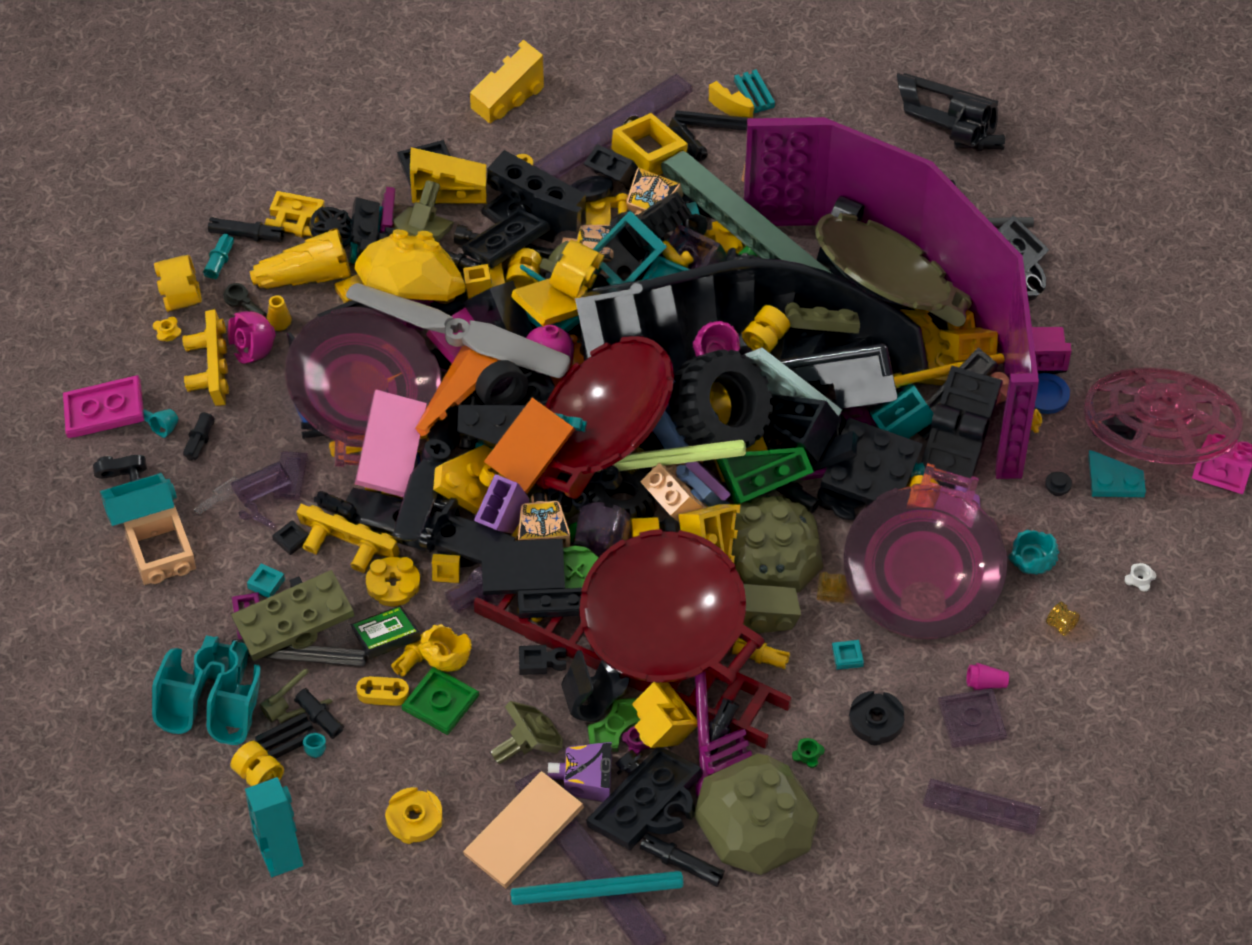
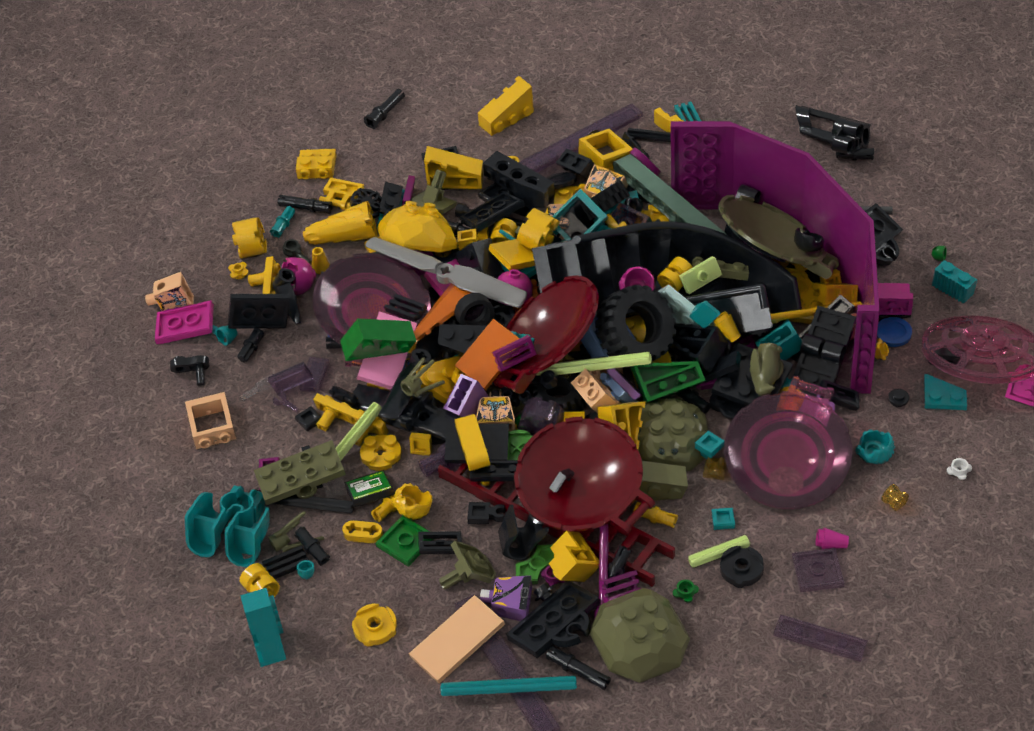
camera: 10 degrees right, 5 degrees down
(80, 366) = (170, 293): none -> light nougat torso
(138, 498) = (198, 386): teal window -> none
(207, 390) = (258, 311): none -> black tile
(238, 360) = (283, 285): none -> black piece
(253, 170) = (316, 163): none -> yellow plate
(265, 580) = (285, 447): teal plate -> none
(333, 92) = (380, 112): none -> black pin
(363, 551) = (358, 429): none -> yellowish green axle
(379, 429) = (377, 338): none -> green wedge
(410, 378) = (407, 305): none -> black tile
(432, 491) = (412, 383): none -> olive plant
(462, 694) = (437, 546): none -> black tile
(518, 567) = (472, 442): none -> yellow beam
(562, 440) = (498, 358): none -> magenta tile
(640, 612) = (563, 475): none -> tile
(704, 160) = (644, 160): none -> magenta tile
(799, 329) = (700, 275): none -> yellowish green plate
(809, 384) = (704, 314): none -> teal slope
(824, 558) = (709, 445): none -> teal tile
(838, 399) = (727, 326): none -> yellow cone
(844, 699) = (716, 551): none -> yellowish green axle
(891, 453) = (766, 367): none -> olive animal
(932, 275) = (808, 241): none -> black hair
(985, 487) = (842, 395): none -> black tile
(1098, 282) = (939, 253): none -> green hinge
(1119, 322) = (954, 281): none -> teal brick

